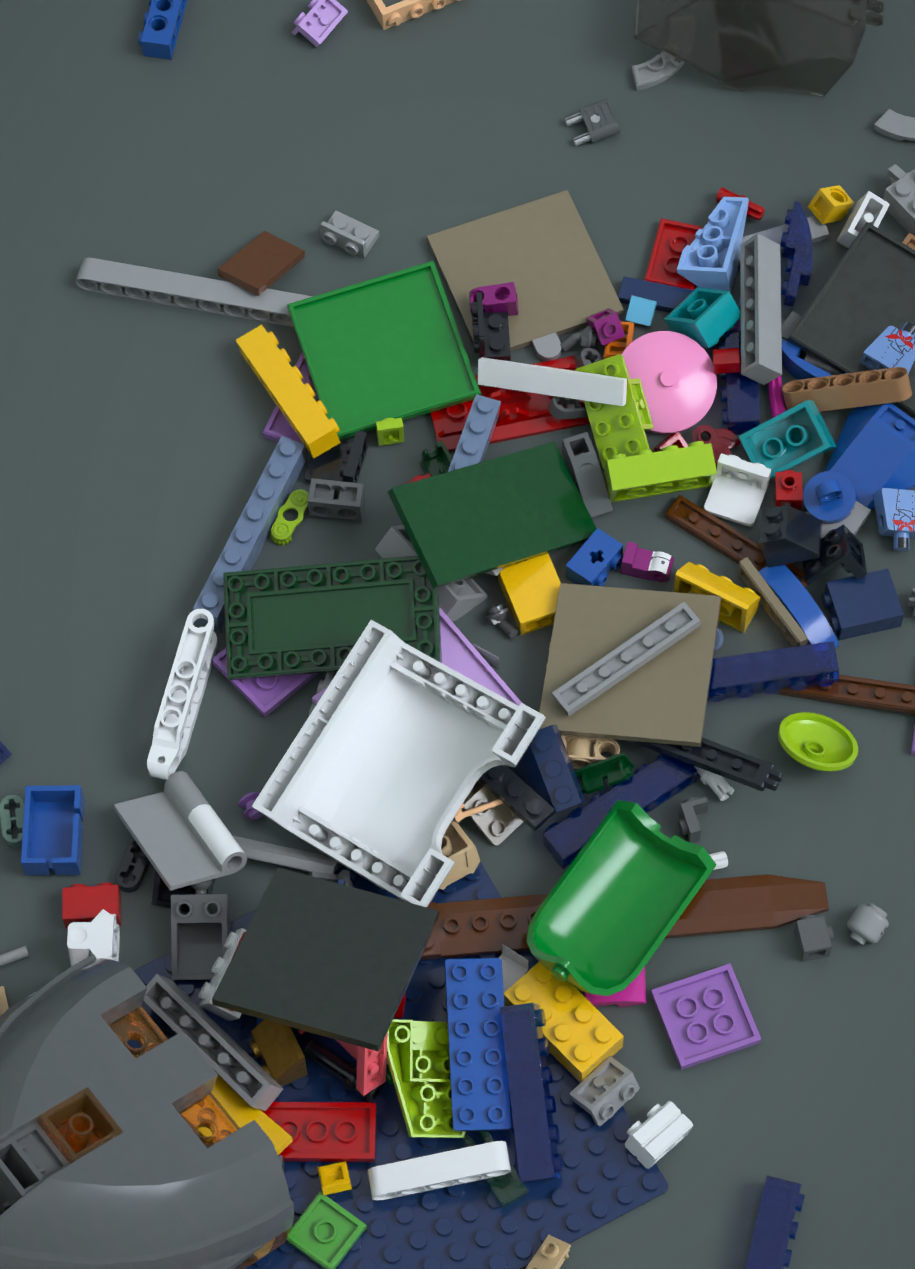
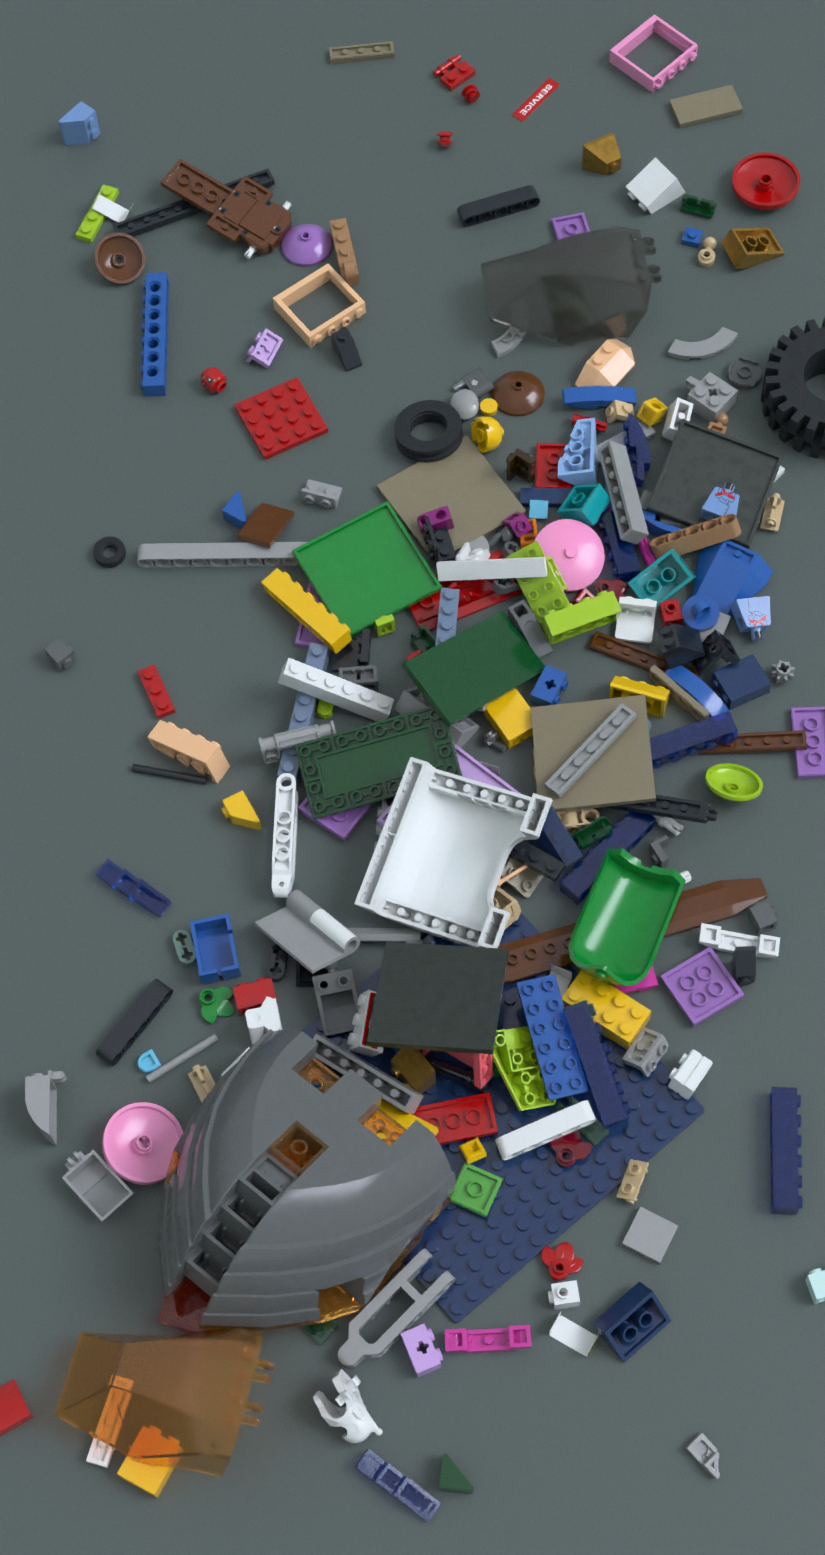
camera: 10 degrees left, 0 degrees up
(39, 908) = (218, 1005): none -> green plate
(47, 273) = (109, 562): none -> black tyre
(51, 579) = (169, 774): none -> black bar
(60, 463) = (156, 691): none -> red plate
(85, 551) = (190, 749): none -> light nougat wedge
(133, 649) = (240, 811): none -> yellow slope
(193, 567) = (271, 746): none -> light grey piece
(225, 235) = (234, 511): none -> blue slope
(239, 50) = (213, 380): none -> red head
(247, 802) = (349, 902): medium lavender wheel -> none
(298, 508) = (335, 690): none -> white brick
(319, 119) = (281, 418): none -> red plate
(430, 41) = (346, 349): none -> black slope
(472, 1199) = (570, 1145): none -> dark red plate
(517, 201) = (426, 412): none -> black tyre
(525, 354) = (476, 554): none -> white bracket
(574, 147) = (466, 404): none -> light grey hat
(595, 192) = (486, 433): none -> yellow cylinder
(607, 156) = (488, 407): none -> yellow tile
(630, 244) = (522, 465): none -> dark brown bracket
(646, 563) = (585, 683): magenta leg -> none
(653, 154) = (518, 400): none -> reddish brown dish
(726, 360) = (607, 532): red slope -> none
(763, 169) = (594, 396): none -> blue slope
(770, 966) = (726, 941): none -> white slope
(770, 999) = (744, 965): none -> black slope
(782, 130) = (607, 365): none -> light nougat wedge
(784, 194) = (618, 410): none -> tan bracket
(867, 924) = (797, 900): light grey head -> none

